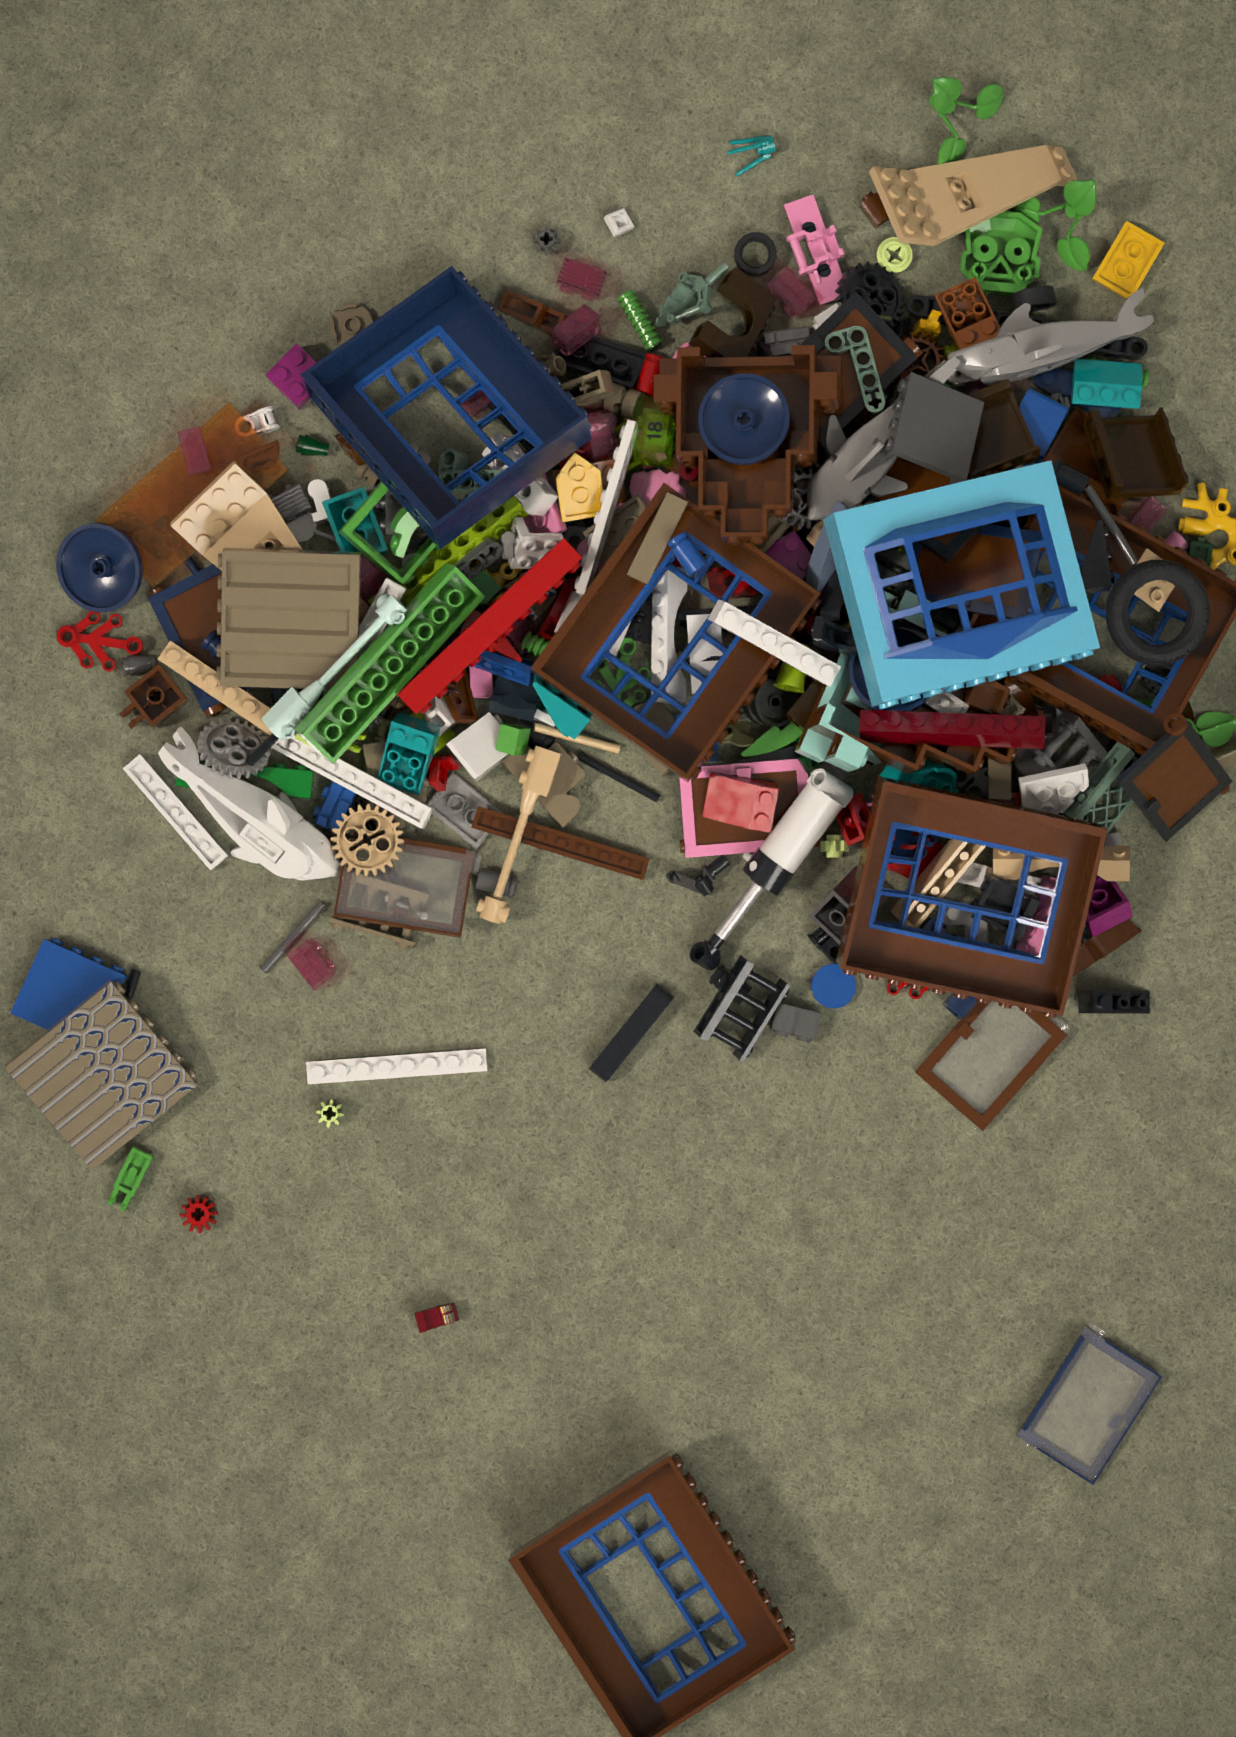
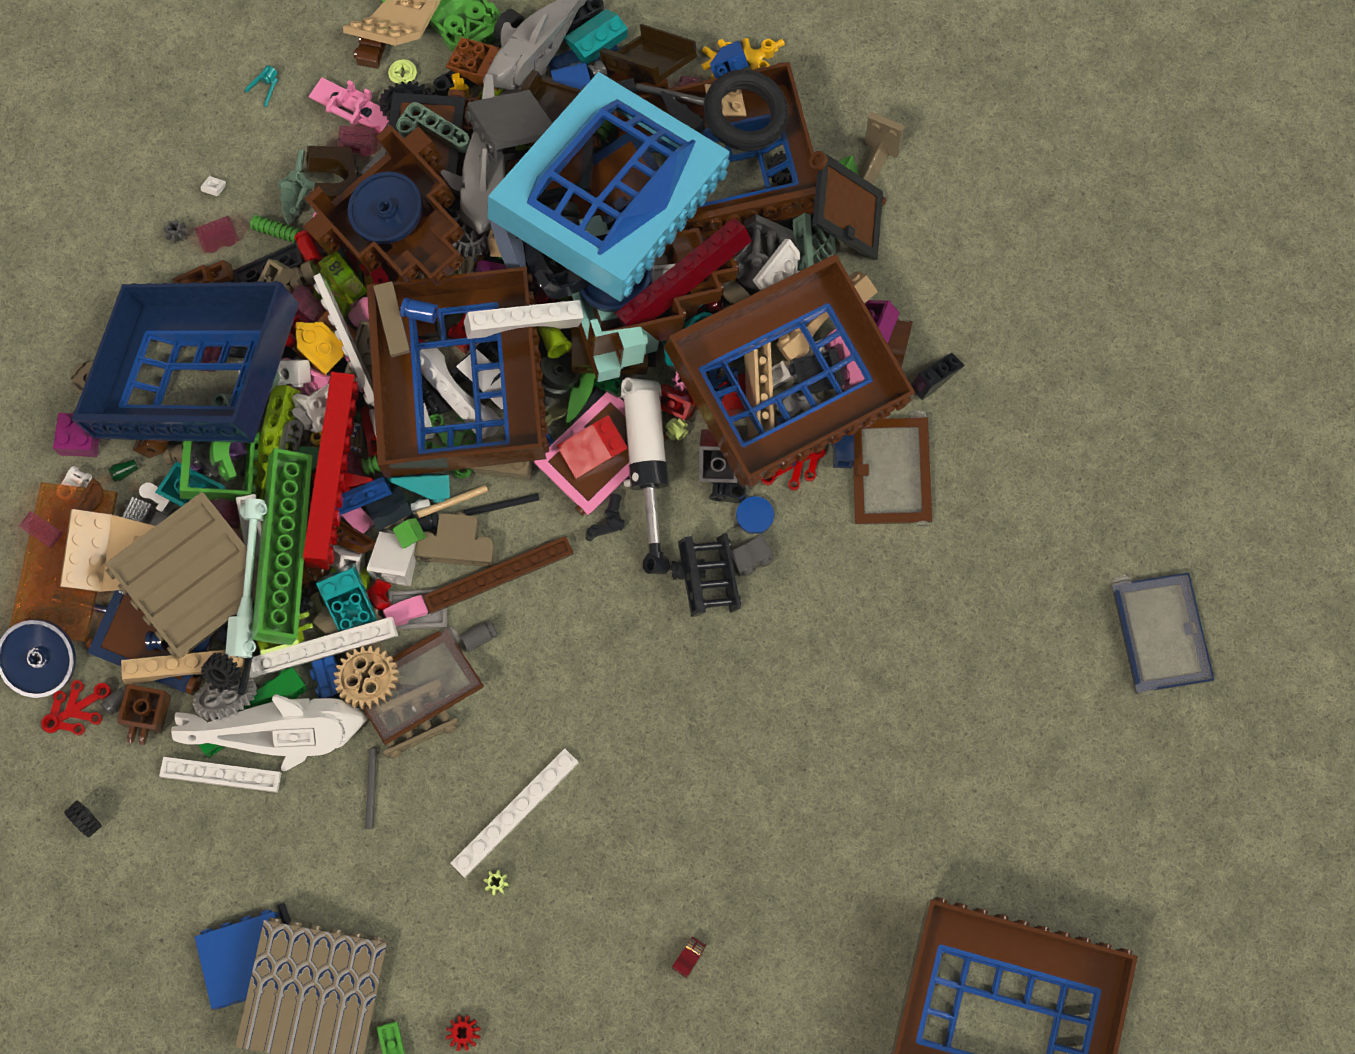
camera: 40 degrees left, 15 degrees down
(29, 751) = (82, 819): none -> black tyre
(246, 728) = (220, 671): none -> black tyre
(312, 964) = (399, 794): clear pink brick -> none
(451, 806) = (406, 610): none -> bright pink slope
(535, 782) = (449, 547): tan bar -> none
(576, 330) = (237, 262): clear pink brick -> none
(631, 1032) = (652, 654): black beam -> none
(755, 237) = (311, 125): black tyre -> none
(1073, 424) = (597, 67): none -> dark grey wheel
(1208, 523) = (728, 59): none -> blue slope

